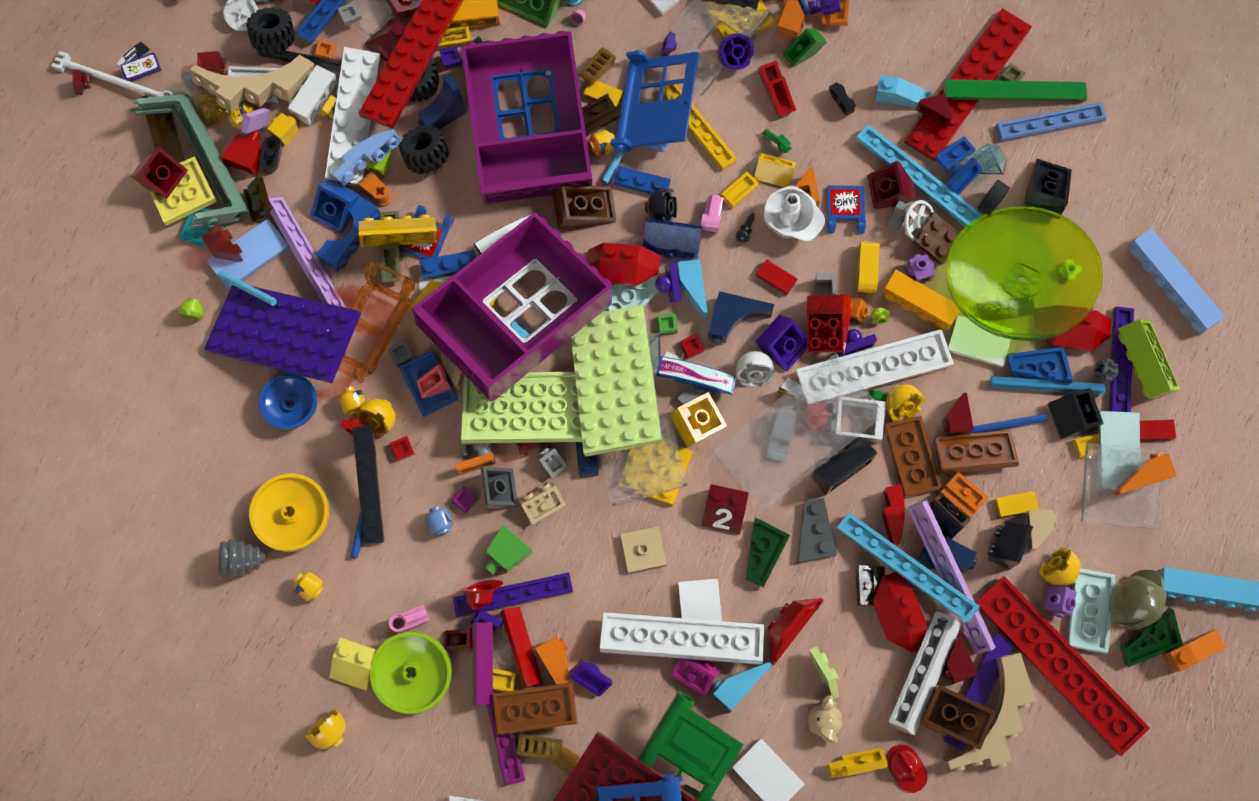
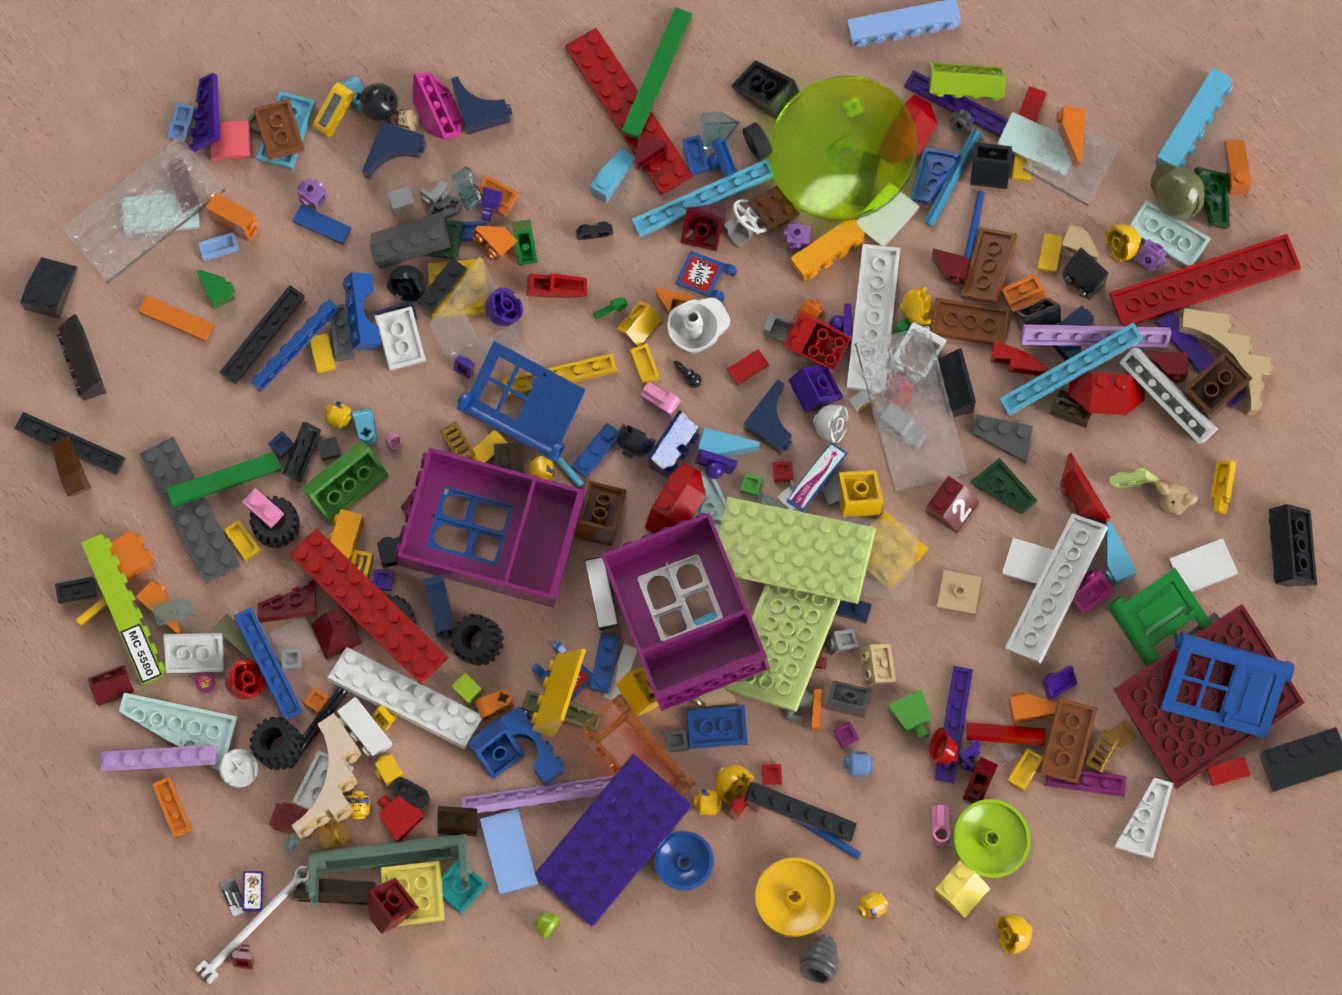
camera: 65 degrees left, 0 degrees up
(220, 244) = (493, 870): clear red slope -> none
(247, 288) = (551, 859): medium azure bar -> none
(254, 120) = (372, 792): lavender tile -> none
(369, 150) = (460, 686): light blue slope -> none
(433, 382) = (722, 718): coral slope -> none
(482, 663) = (1009, 770): magenta tile -> none
(868, 267) = (774, 281): yellow beam -> none
(879, 316) = (826, 292): lime plate -> none
(907, 768) = (1242, 448): red piece -> none
(1012, 73) = (637, 68): olive tile -> none
(1050, 122) = (700, 56): medium blue tile -> none

